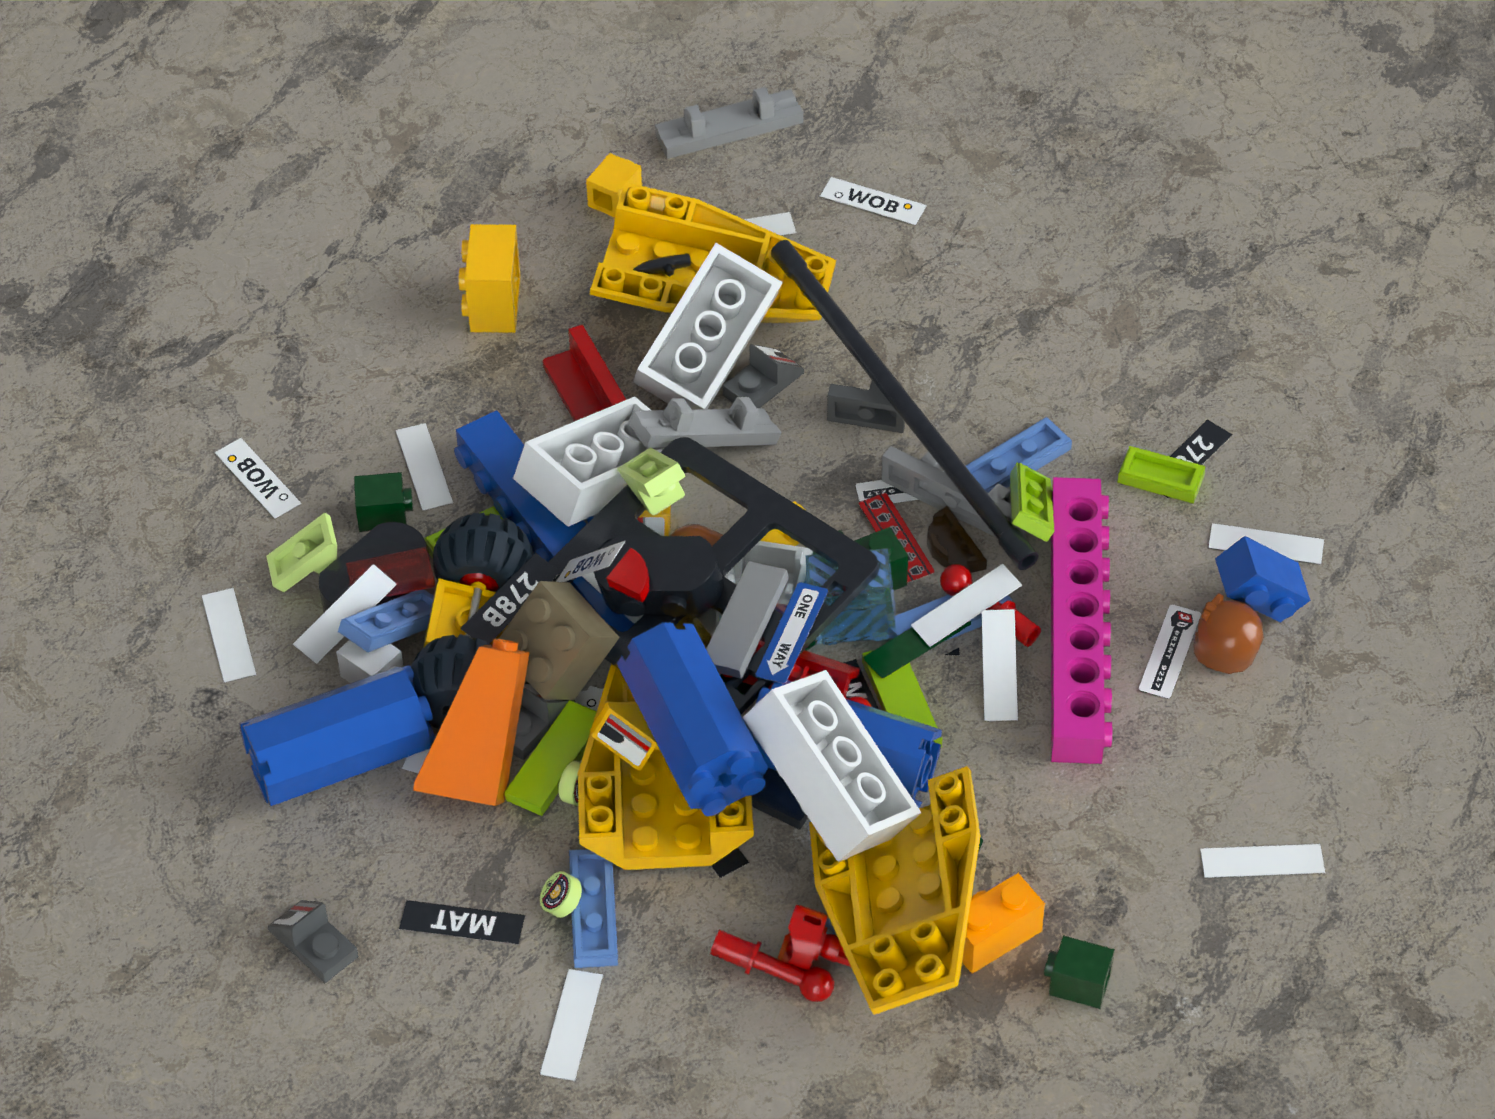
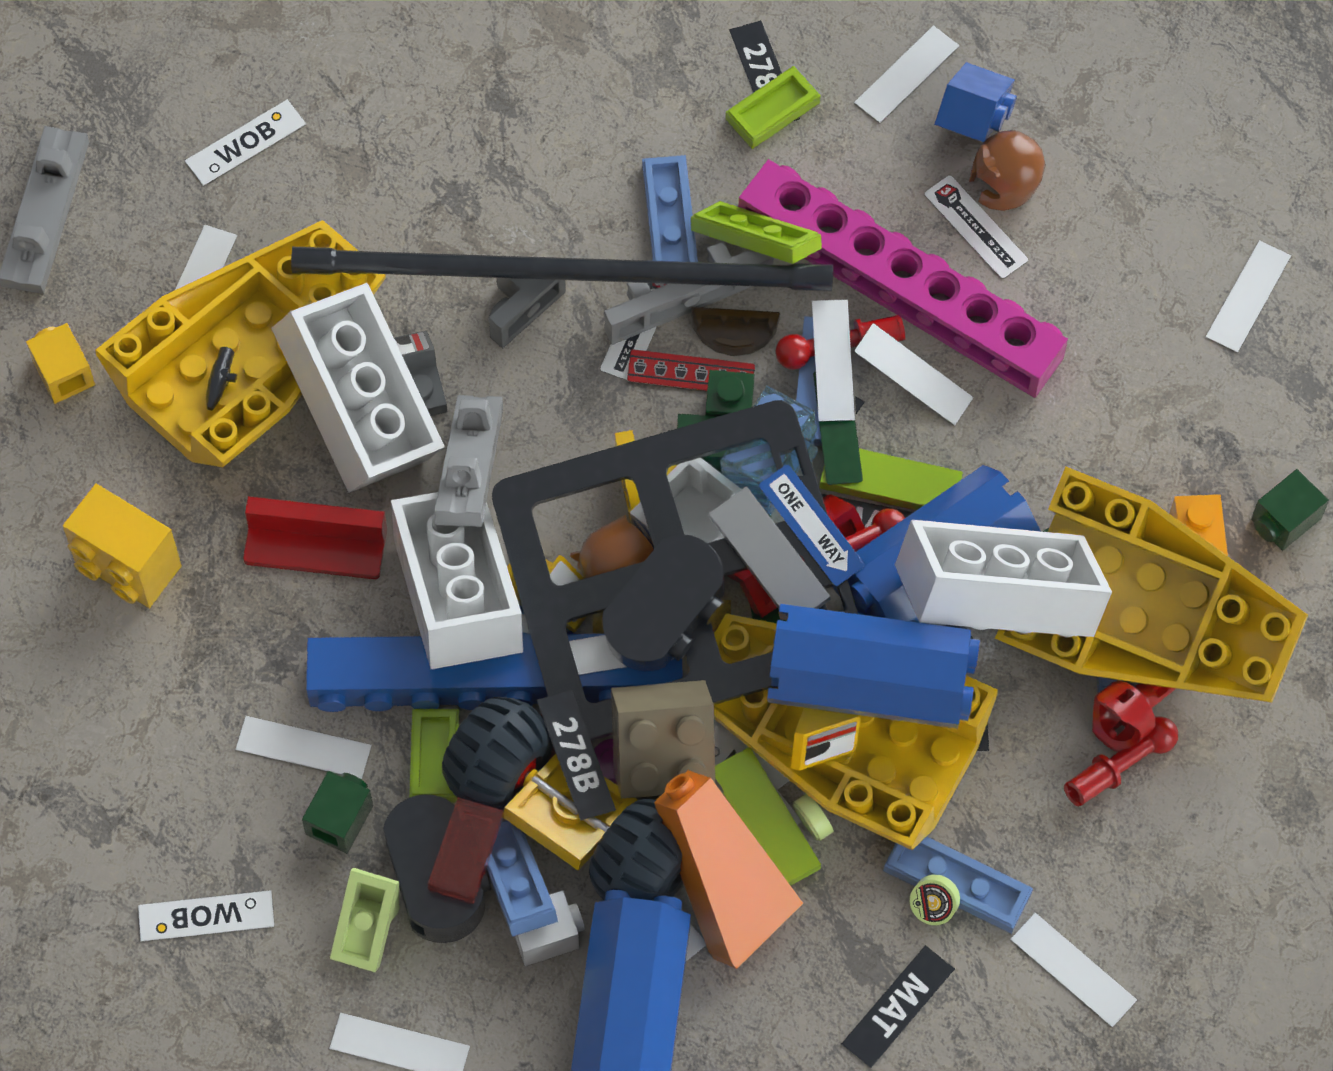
camera: 60 degrees left, 15 degrees up
(359, 597) = (481, 919): white sticker -> none
(590, 562) = (614, 655): white sticker -> none
(630, 576) = (670, 626): red tile -> none
(654, 480) = (544, 539): yellowish green slope -> none

